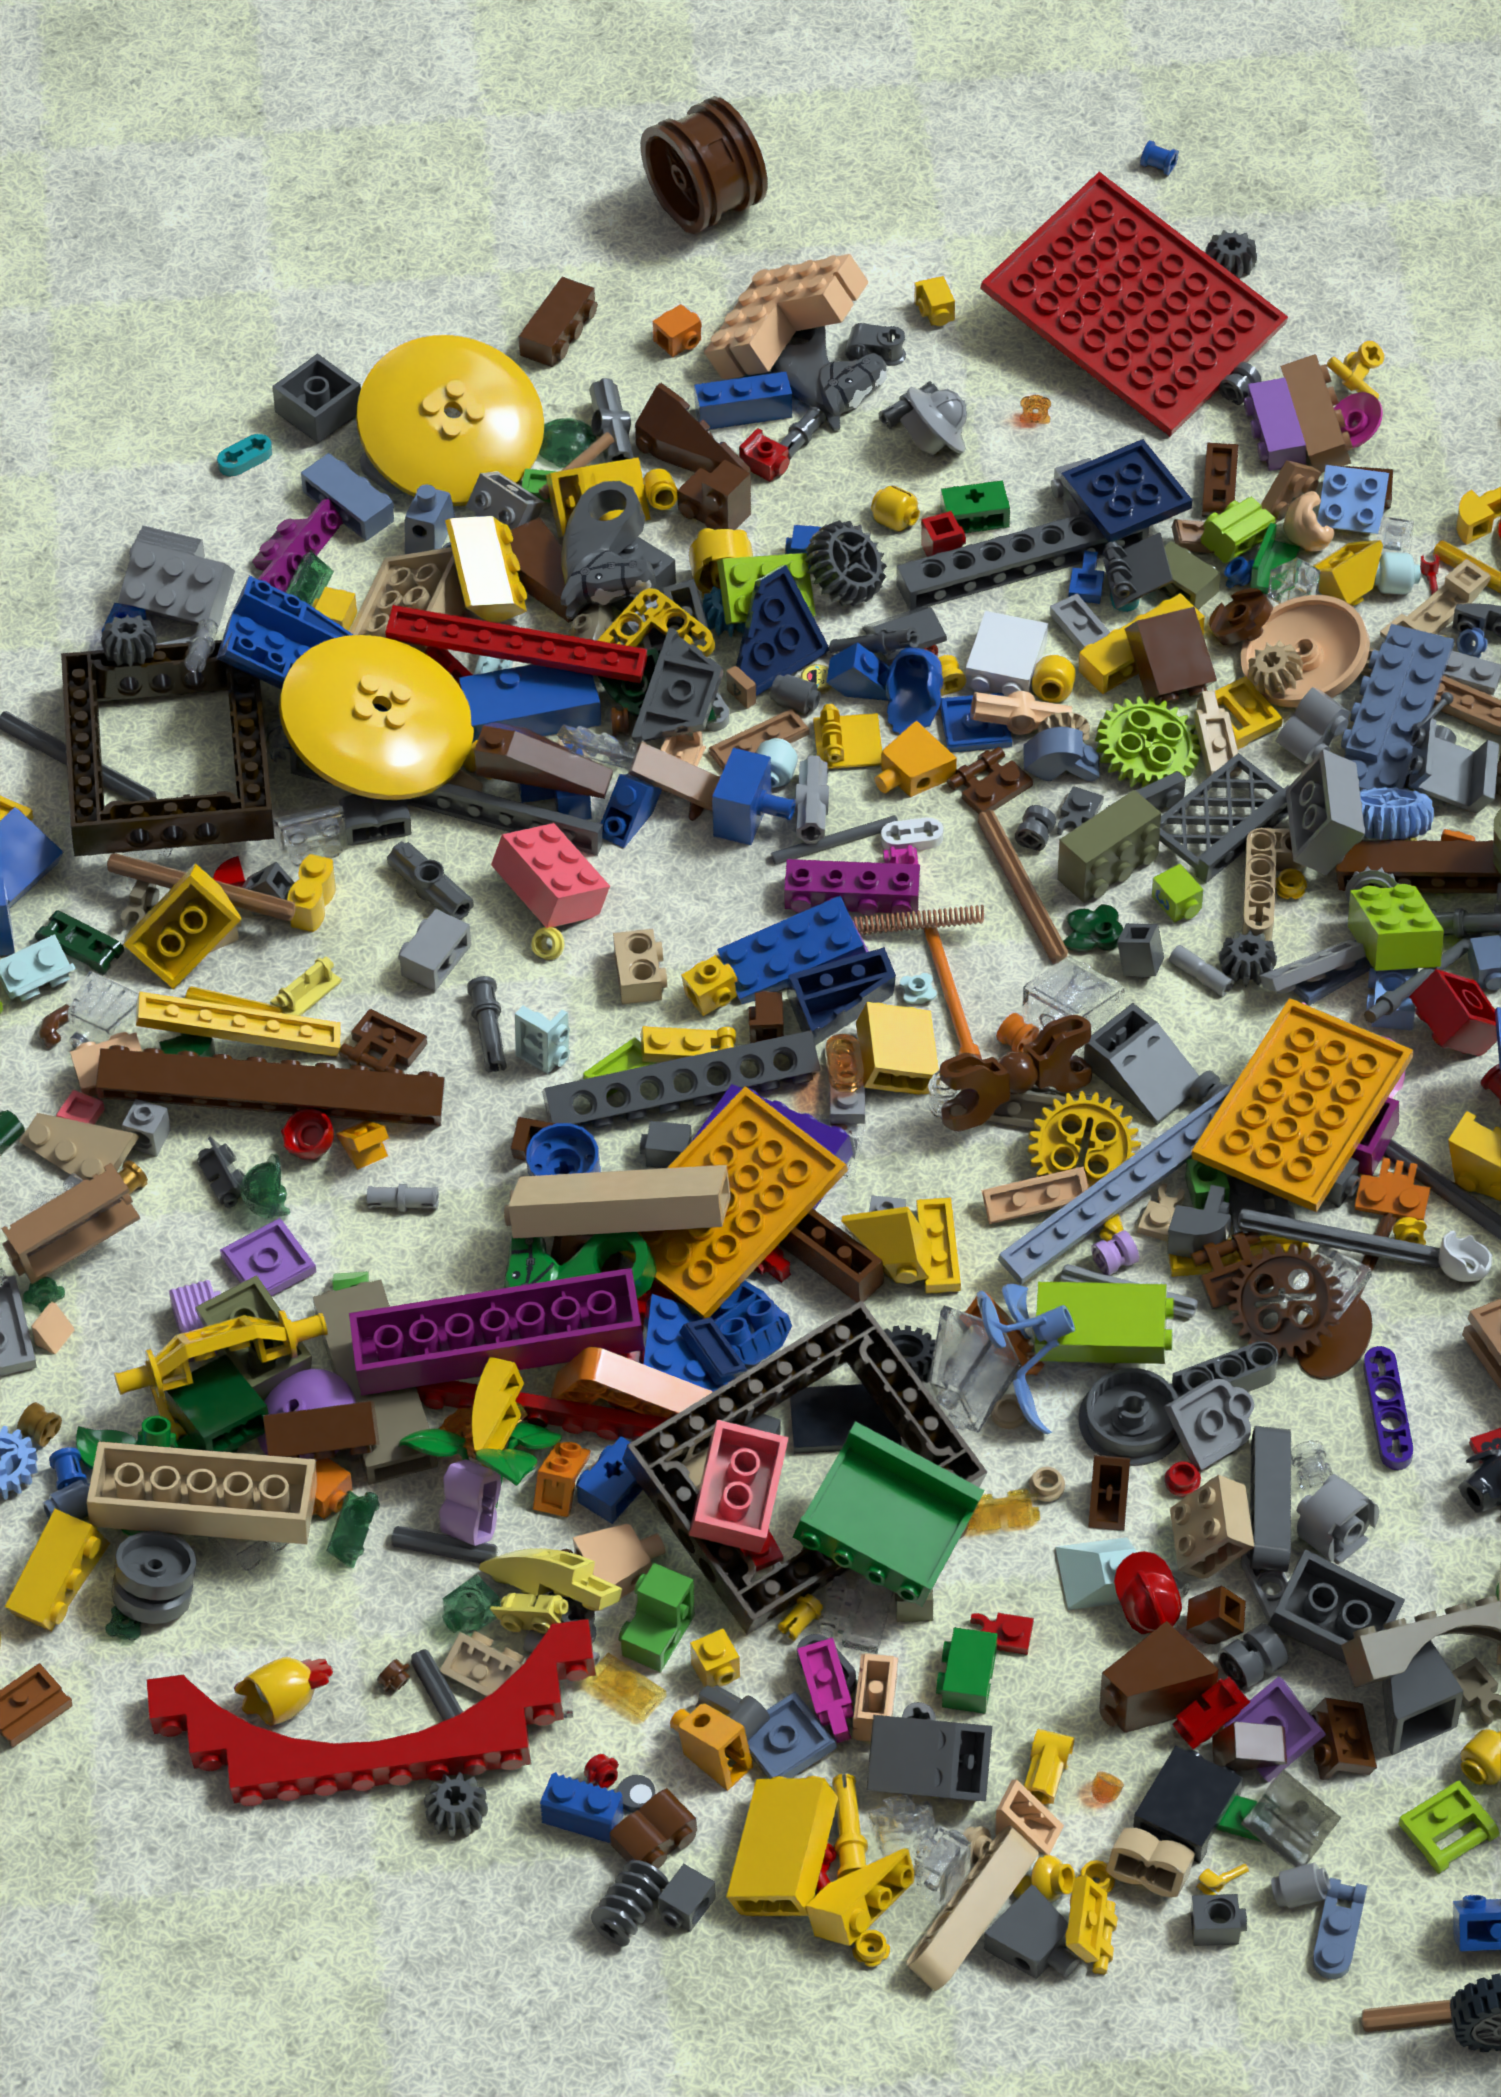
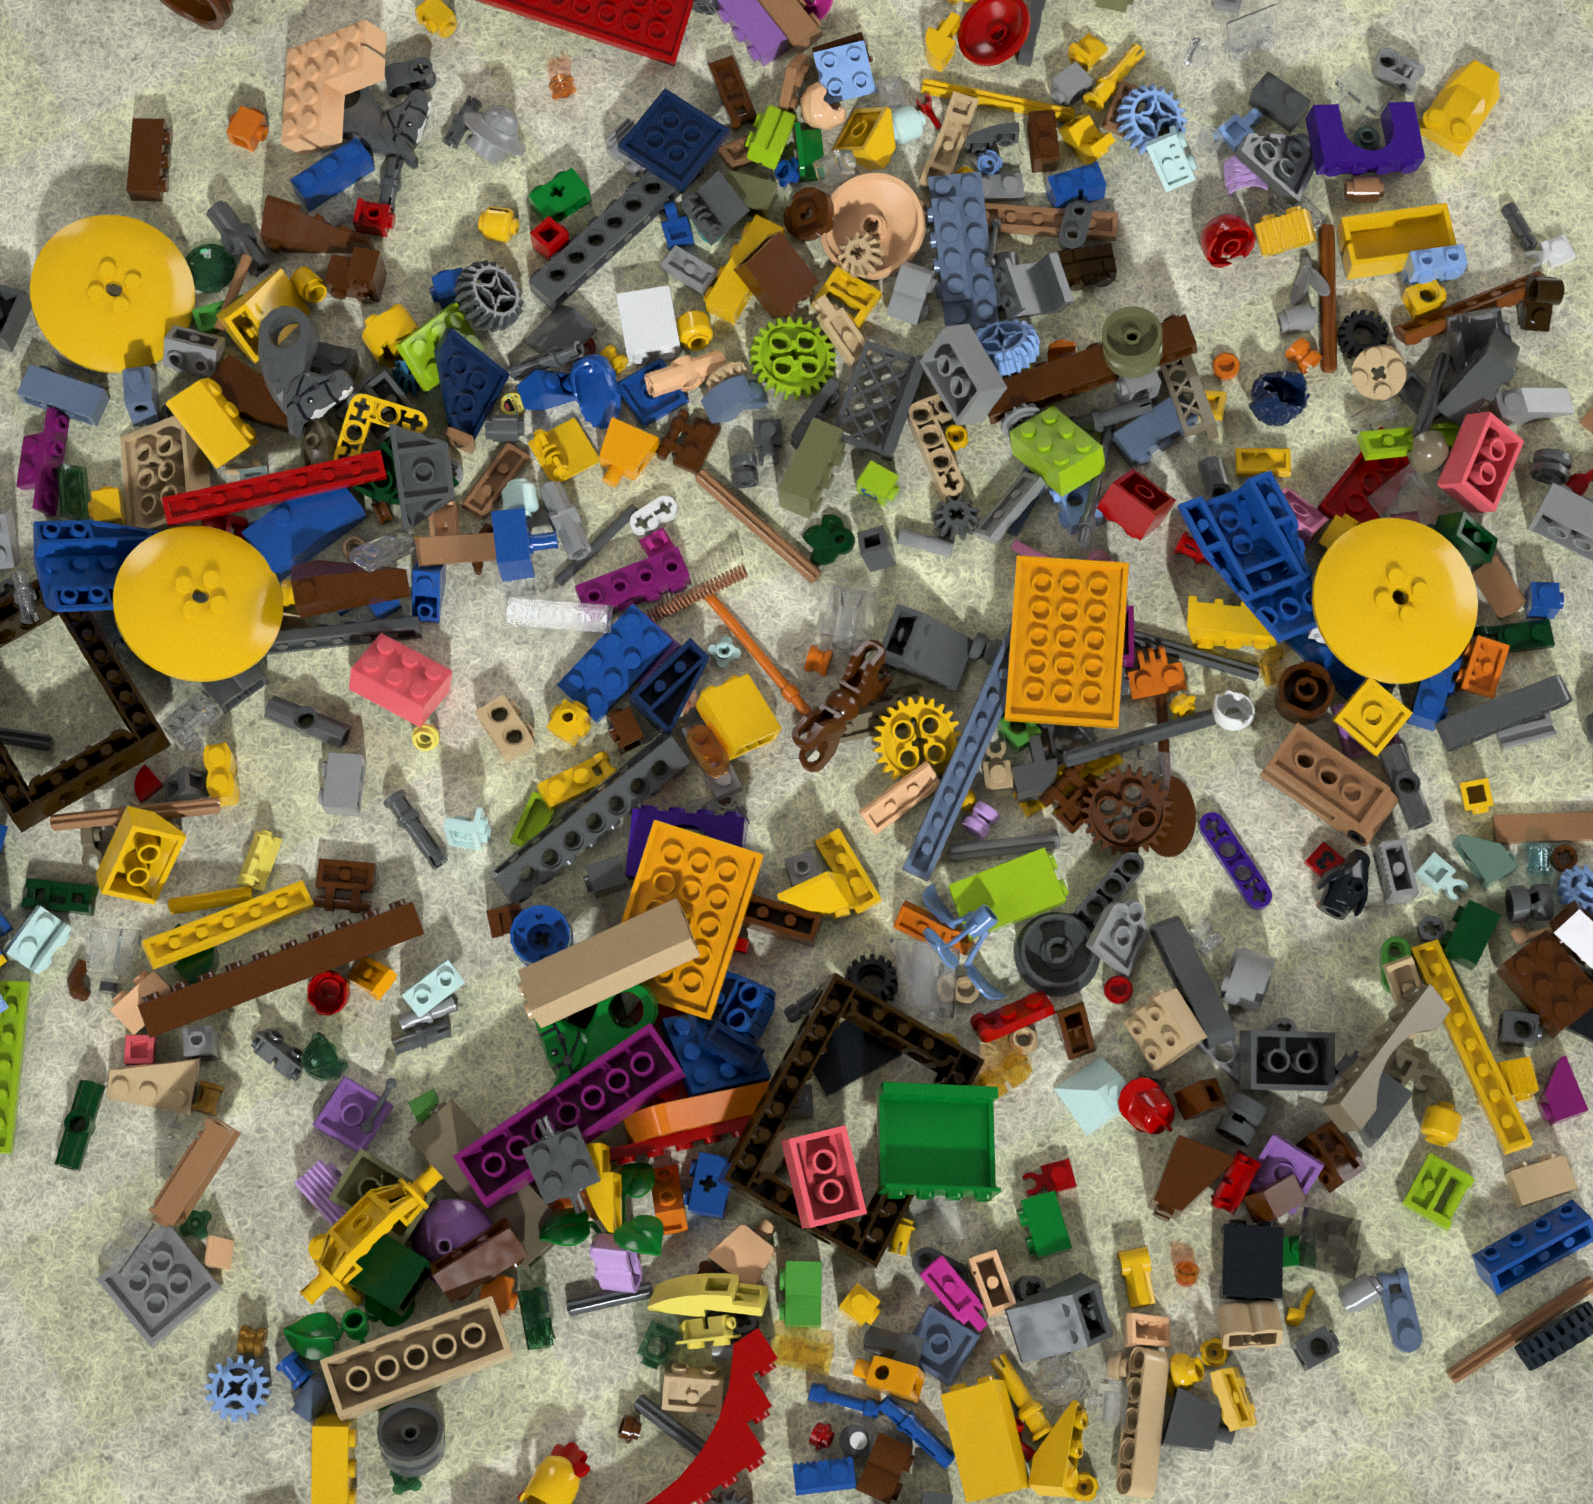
camera: 25 degrees left, 20 degrees up
(276, 1272) = (367, 1126): none -> dark grey hinge
(382, 1217) = (421, 1037): none -> dark grey pin
(420, 1169) = (433, 988): none -> light aqua bracket
(460, 1361) = (561, 1164): none -> dark grey plate
(670, 1767) = (820, 1393): none -> blue bar
(714, 1817) = (922, 1436): none -> blue pin
(755, 880) = (559, 615): none -> clear tile
(1044, 1453) = (1012, 1016): none -> red plate

